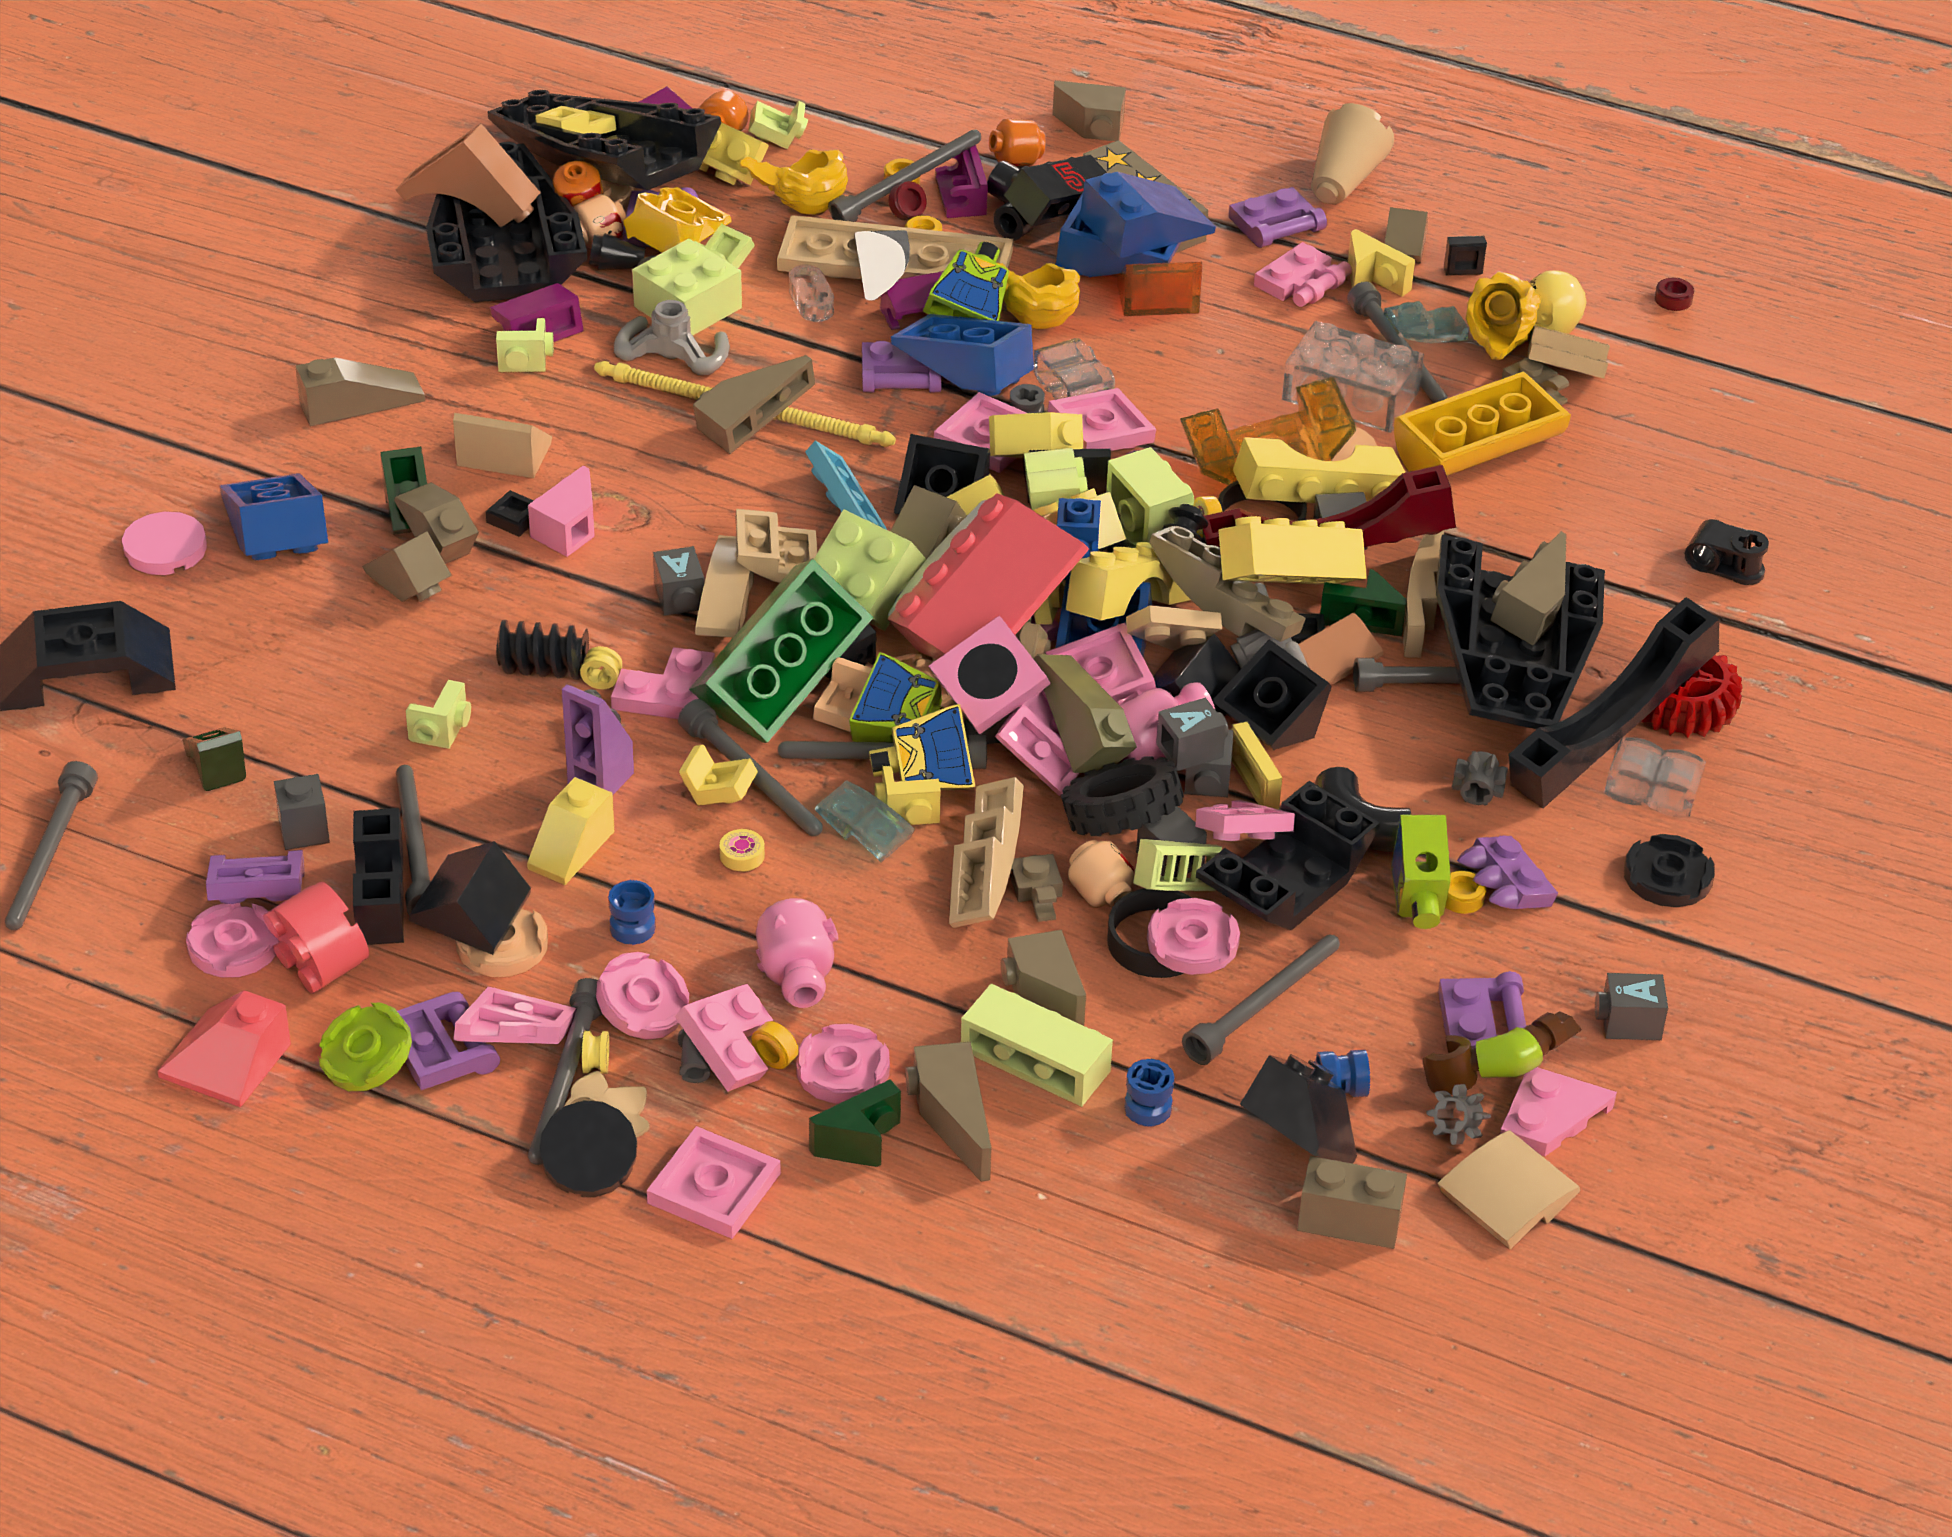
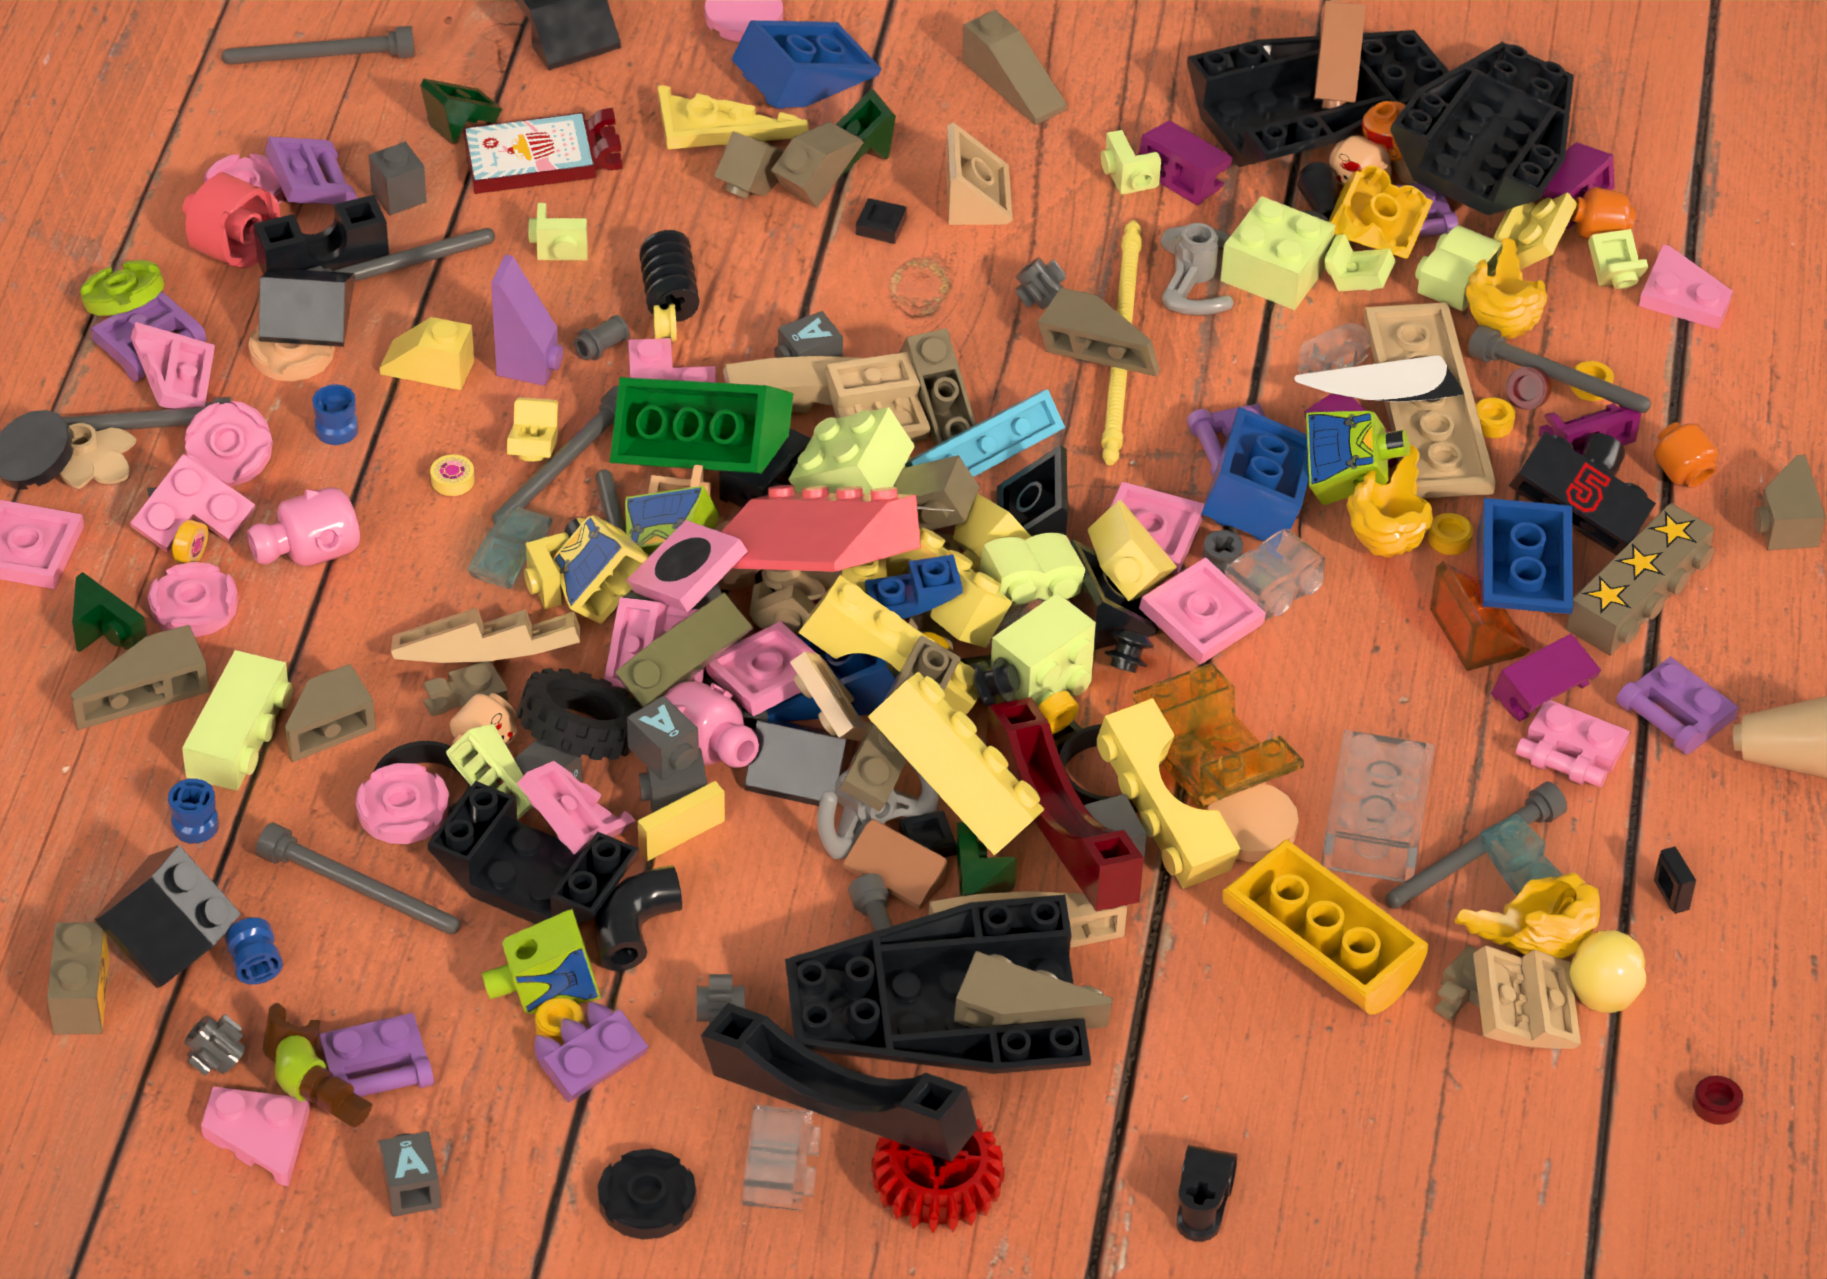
camera: 75 degrees right, 5 degrees up
(230, 1048) = (106, 217): coral slope -> none
(299, 714) = (541, 151): none -> tile
(325, 588) = (712, 121): none -> light yellow wing
(564, 514) = (884, 250): bright pink slope -> none
(577, 120) = (1493, 95): light yellow slope -> none
(595, 1052) = (155, 441): light yellow bush -> none
(662, 426) = (1039, 282): none -> dark grey gear
(749, 201) = (1447, 269): none -> yellowish green brick
(751, 493) = (941, 384): none -> dark tan slope
(824, 104) = (1685, 290): none -> bright pink wing
(1139, 214) = (1539, 555): blue slope -> none
(1235, 267) = (1544, 676): none -> magenta hinge
(1276, 697) = (774, 815): black slope -> none
(1379, 263) = (1611, 794): light yellow slope -> none
(1407, 231) = (1683, 817): dark tan slope -> none
(1508, 1188) = (136, 1103): tan slope -> none

